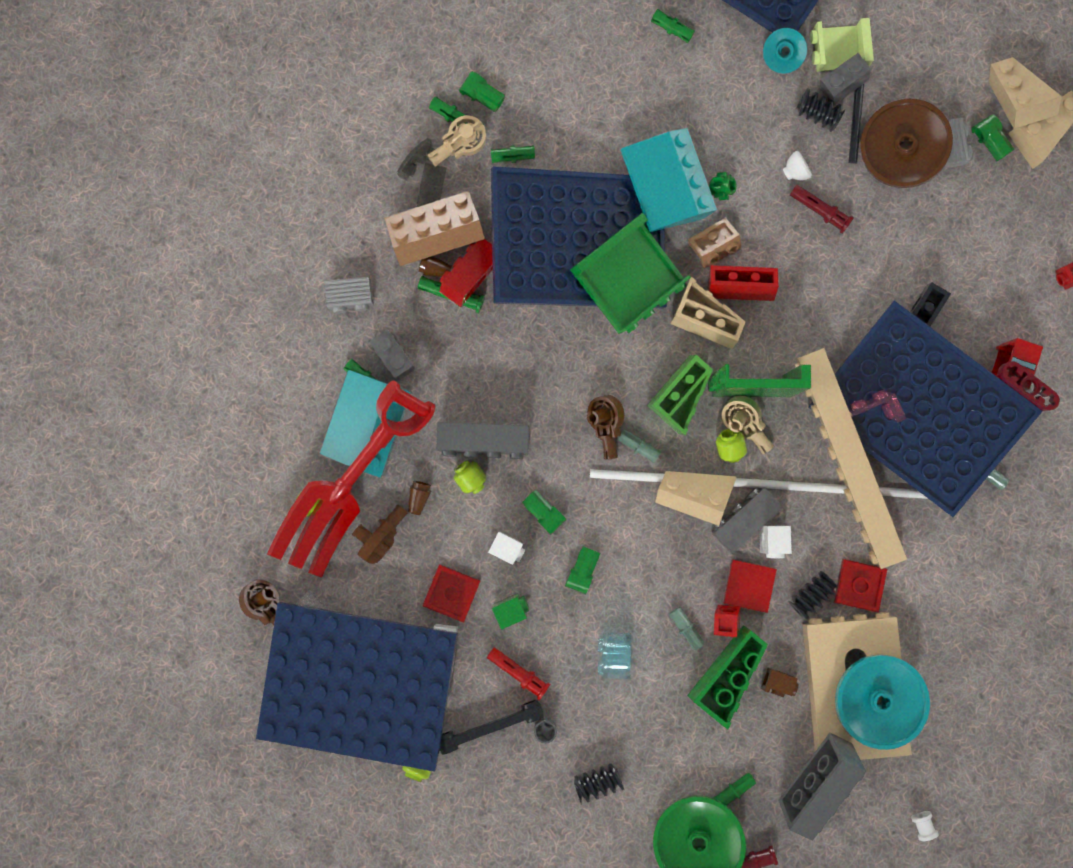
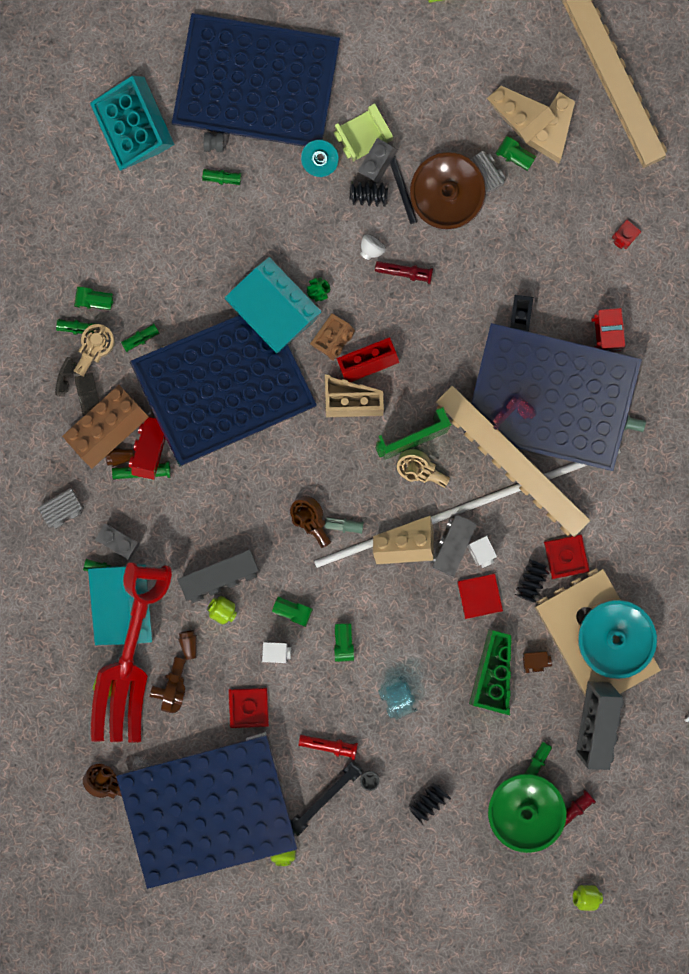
camera: 20 degrees left, 0 degrees up
(510, 610) = (300, 699): green brick -> none
(629, 276) = (276, 395): green panel -> none
(680, 394) = (358, 469): bright green wedge -> none
(686, 628) = (445, 651): sand green axle -> none
(727, 620) = (473, 631): red brick -> none
(731, 446) = (416, 493): lime head -> none
(1018, 371) = (635, 353): dark red beam -> none

